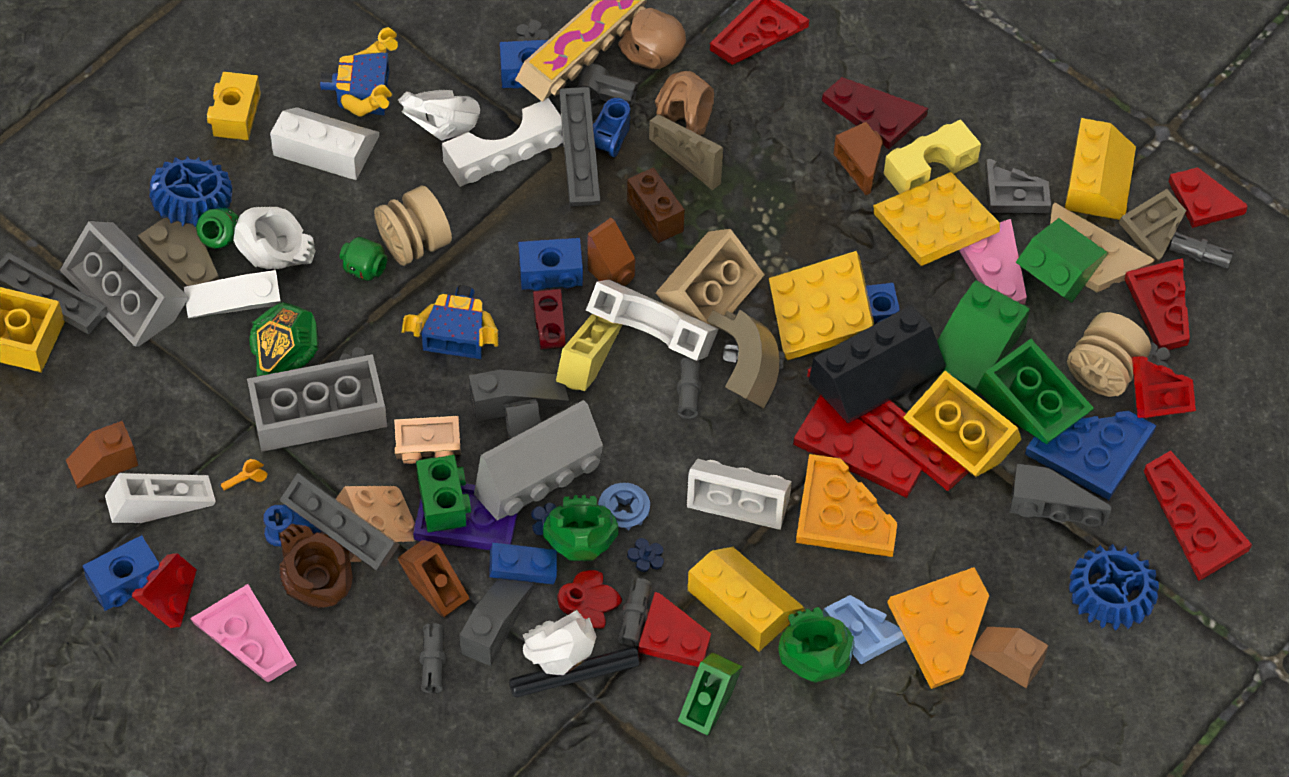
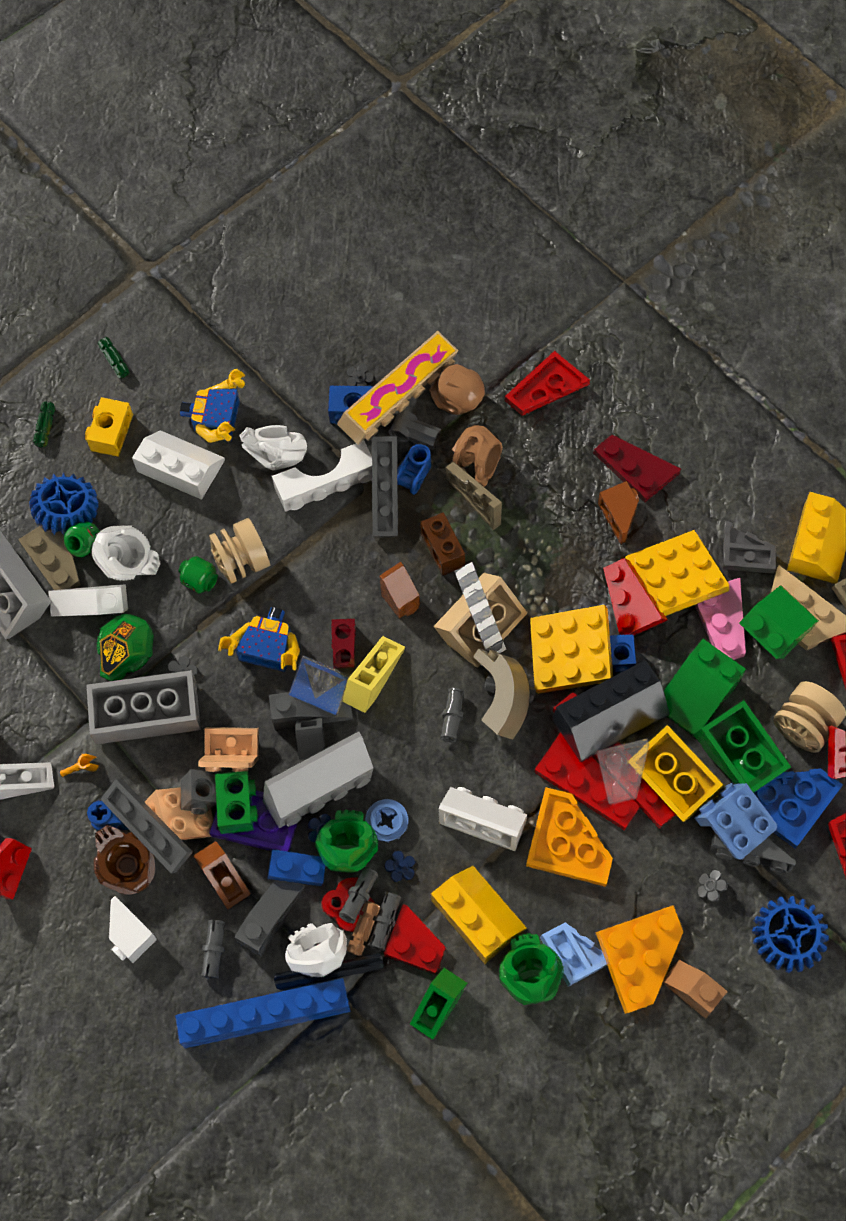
camera: 10 degrees right, 10 degrees up
(153, 109) = (44, 424): none -> dark green axle
(229, 32) = (113, 357): none -> dark green axle
(246, 633) = (65, 911): bright pink wing -> none
(329, 647) = (128, 932): none -> white slope
(396, 484) = (204, 784): none -> dark grey brick
(502, 719) = (262, 1013): none -> blue brick
(526, 364) = (319, 685): none -> clear piece
(560, 253) = (339, 583): blue brick -> none
(601, 583) = (358, 895): none -> dark grey pin
(611, 620) = (363, 928): none -> medium nougat axle
(636, 310) = (451, 664): white arch -> none
(709, 262) = (480, 608): none -> sticker
(885, 248) = (632, 604): none -> wing
(899, 424) = (623, 769): none -> clear wing
(950, 145) = (696, 505): light yellow arch -> none
(1016, 545) = (711, 885): none -> dark grey plant
(1039, 465) = (737, 819): none -> medium blue bracket

